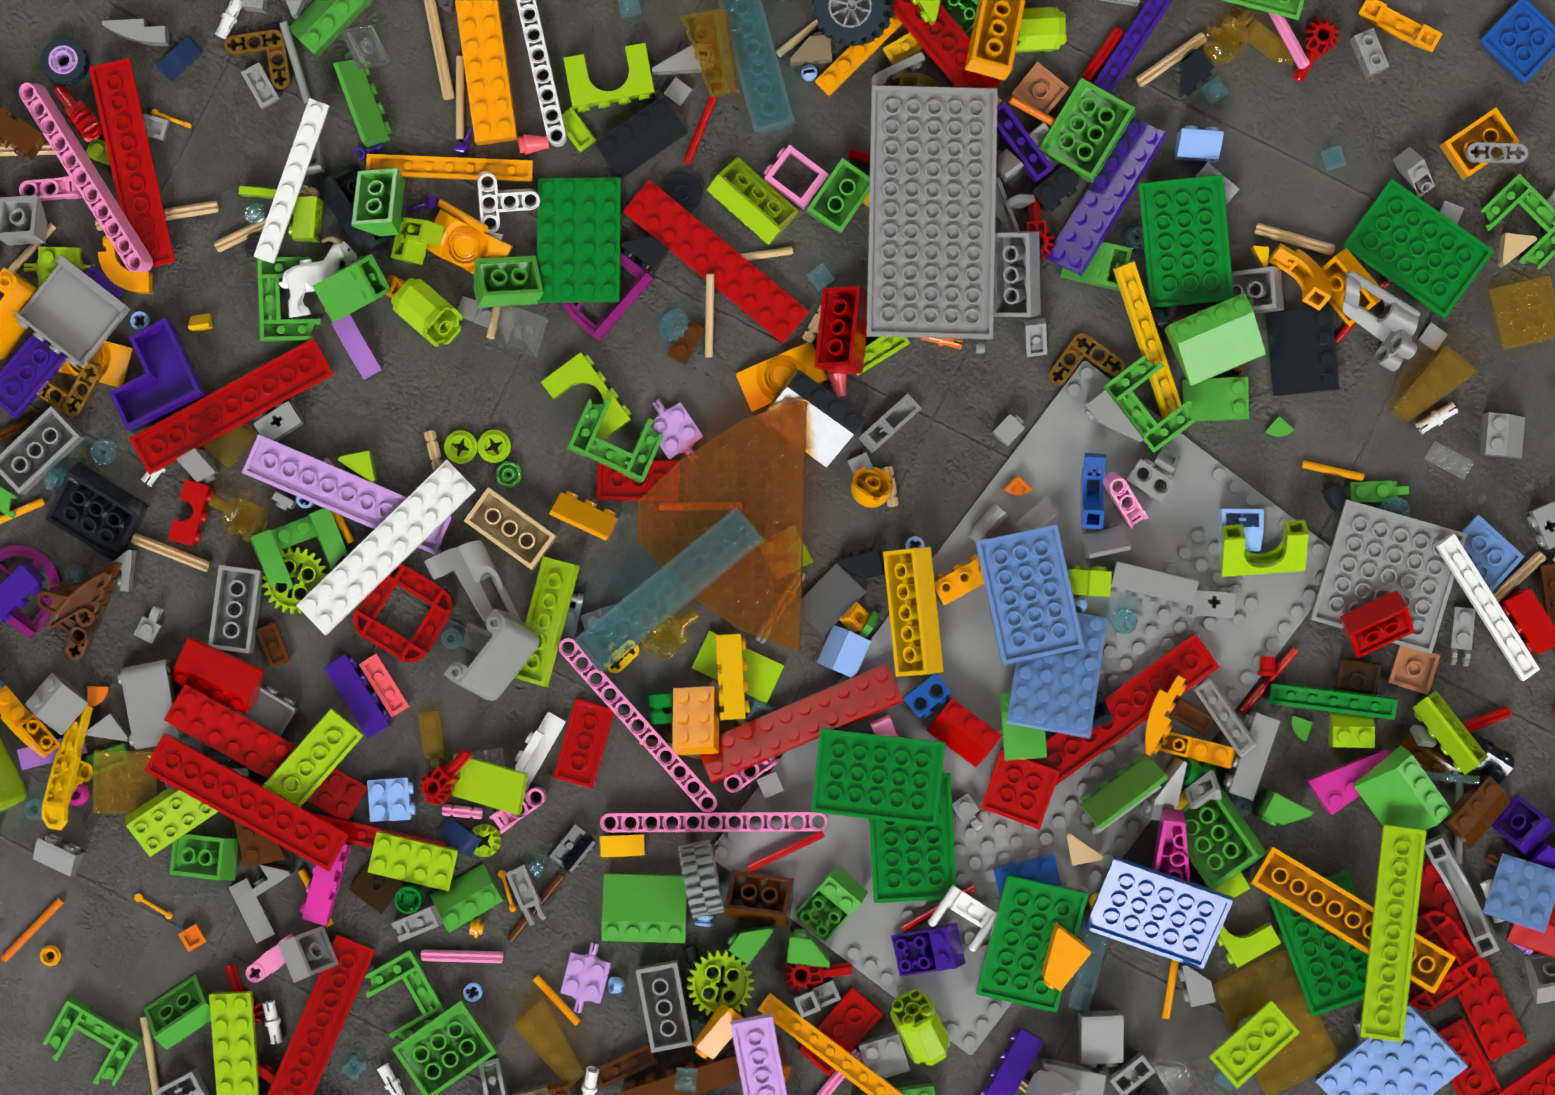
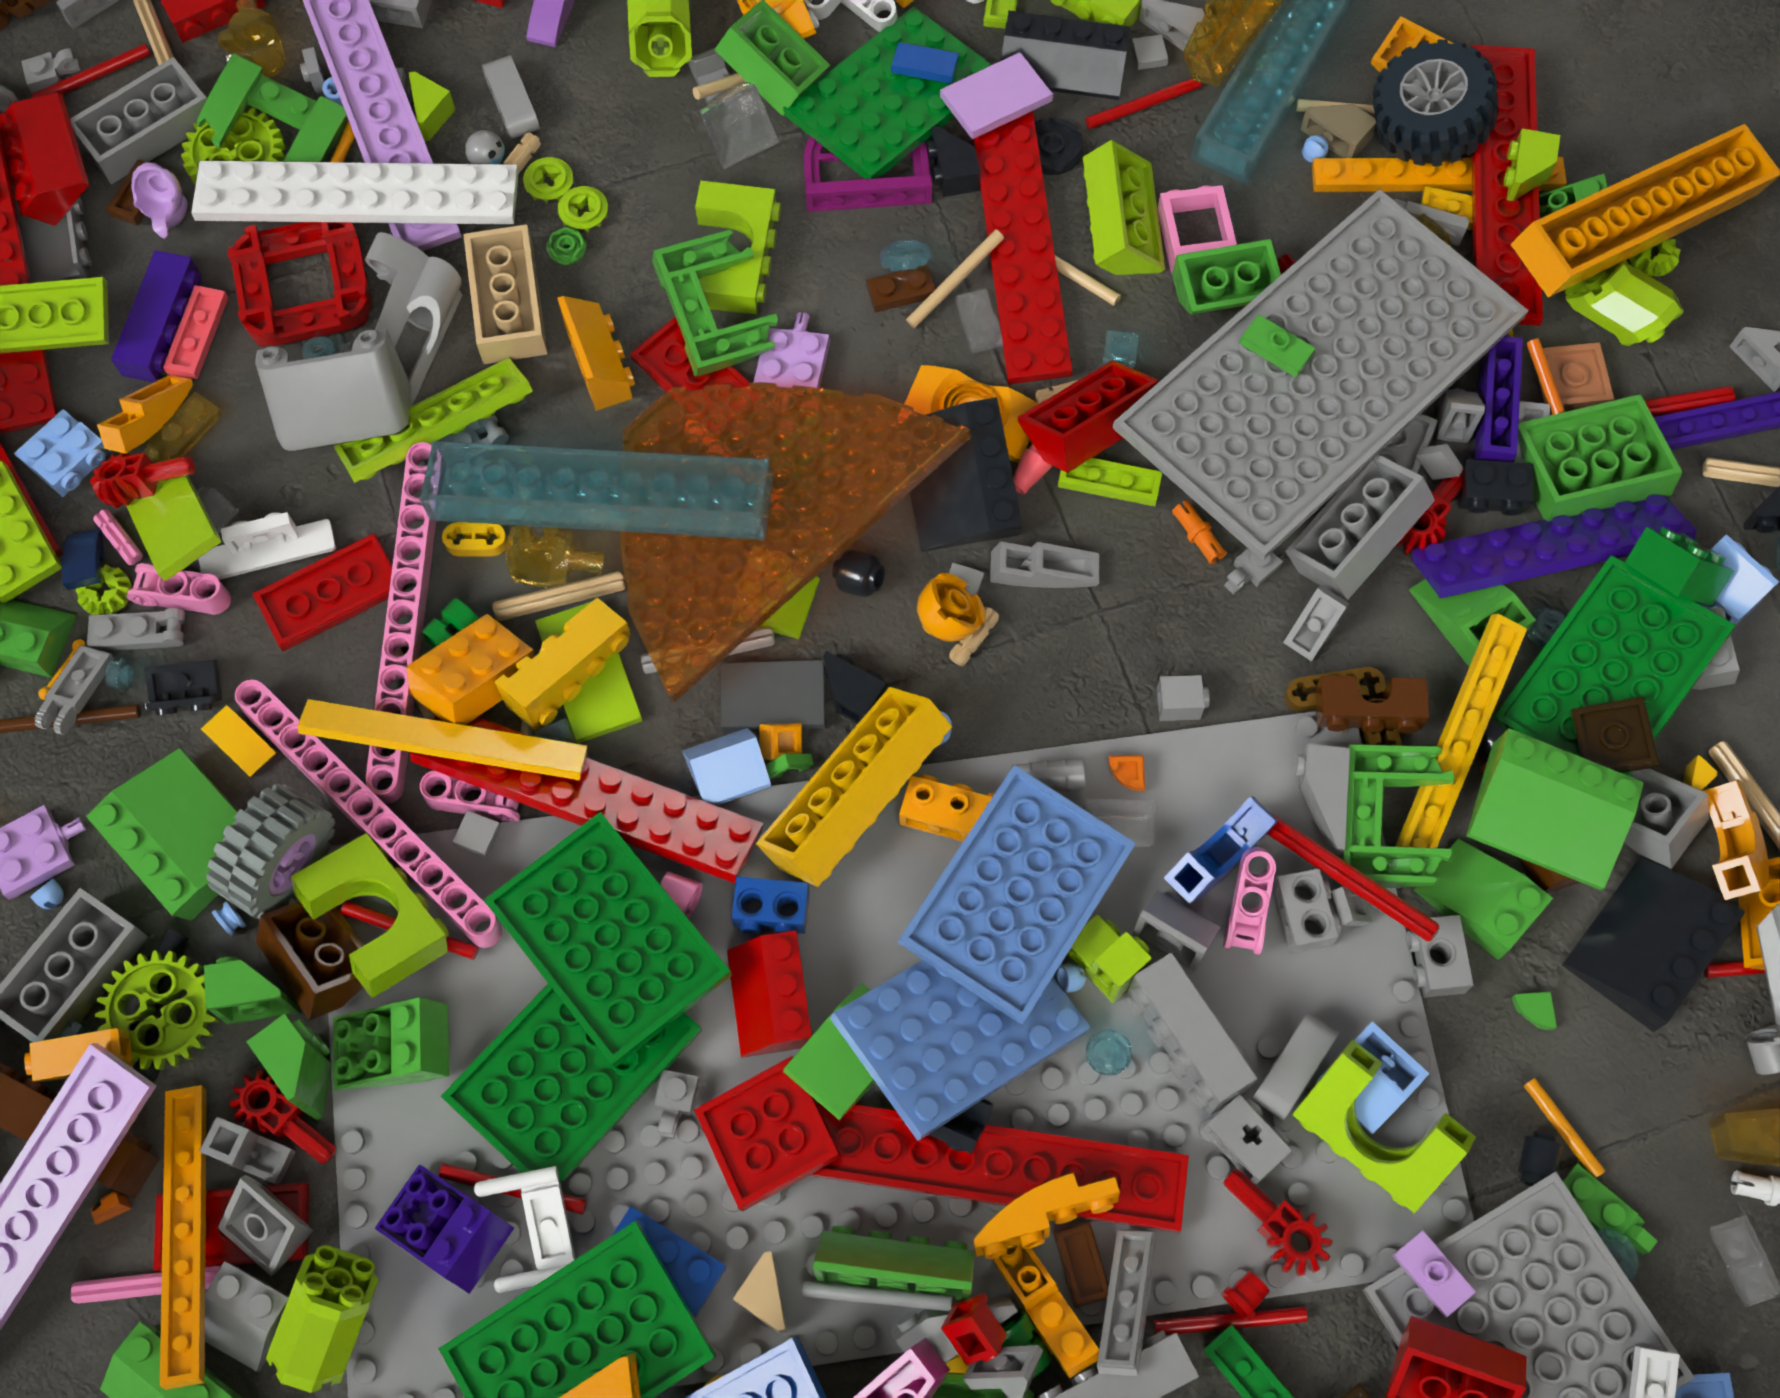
camera: 45 degrees right, 20 degrees down
(174, 606) = (96, 72): none -> red bar
(293, 640) = (158, 197): none -> lavender hair
(395, 421) = (510, 97): none -> light grey beam
(410, 746) = (144, 413): none -> light orange slope
(414, 462) = (484, 148): none -> light grey piece
(519, 843) = (136, 630): none -> light grey plate
(582, 212) = (925, 62): none -> blue tile
(636, 199) = (996, 95): none -> lavender tile
(687, 649) = (558, 596): none -> tan axle
(720, 763) = (442, 739): none -> yellow tile
(740, 325) = (979, 321): none -> clear slope
(743, 846) = (365, 870): none -> lime arch
(814, 507) = (858, 573): none -> black head
(857, 1018) = (262, 1225): none -> light grey slope
(903, 224) = (1277, 345): none -> bright green plate
(1109, 345) = (1342, 707): none -> reddish brown arch
(1158, 451) = (1354, 880): none -> red axle
(1174, 164) = (1680, 565): none -> green brick
(1179, 787) = (974, 1330): none -> red brick
(1204, 553) = (1295, 1066): none -> light grey beam
(1213, 277) = (1616, 735): none -> dark brown plate
(1232, 450) = (1436, 978): none -> light grey brick
(1256, 625) = (1280, 1224): none -> red gear
(1333, 588) = (1434, 1274): none -> lavender plate

